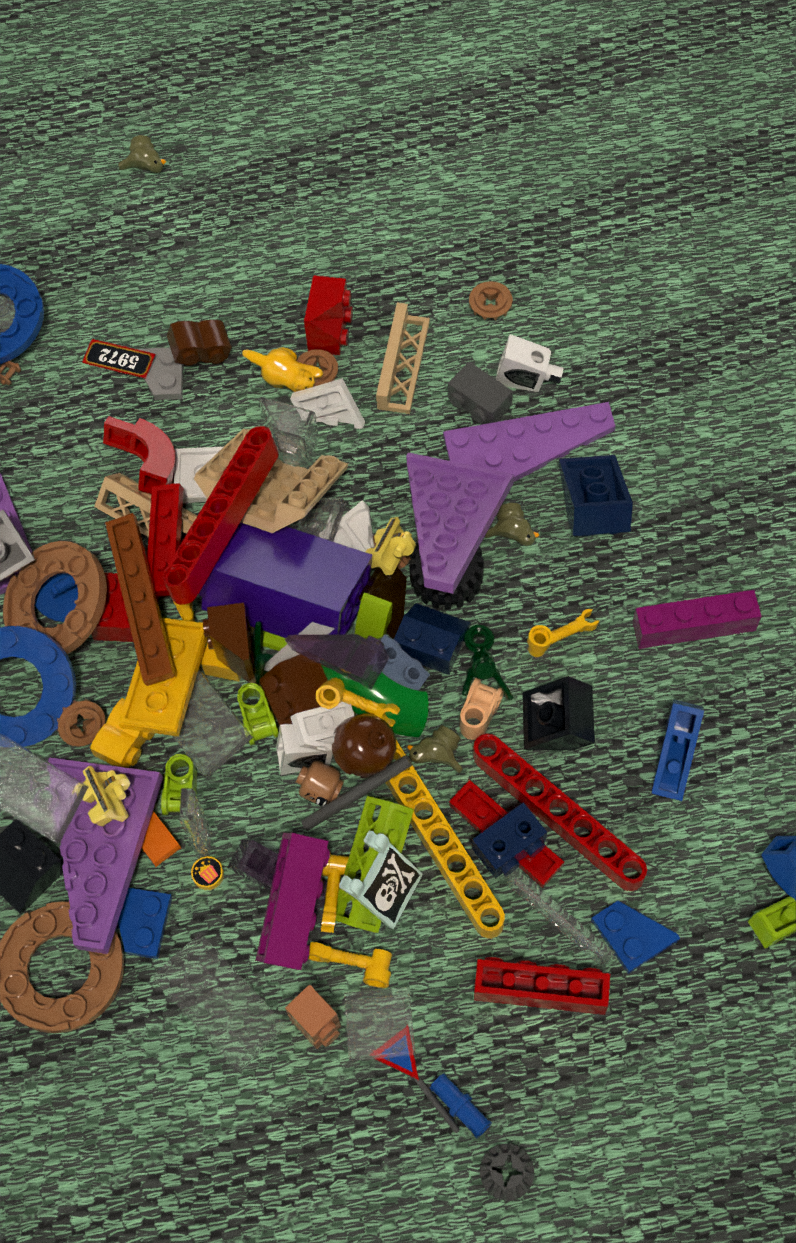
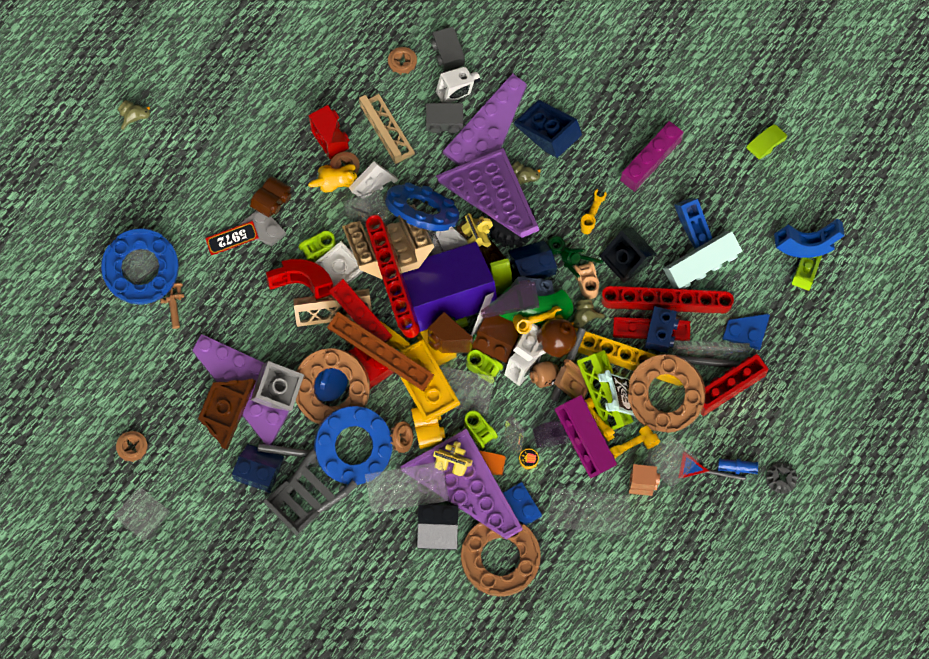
camera: 45 degrees left, 5 degrees up
(197, 432) = (316, 245): none -> lime piece
(339, 816) = (571, 380): none -> medium nougat plate
(370, 504) = (397, 204): none -> blue plate
(404, 918) = (639, 394): none -> medium nougat plate
(535, 925) = (710, 361): none -> dark grey bar
(554, 321) = (448, 49): none -> dark grey brick
(650, 797) = (703, 259): none -> light aqua brick

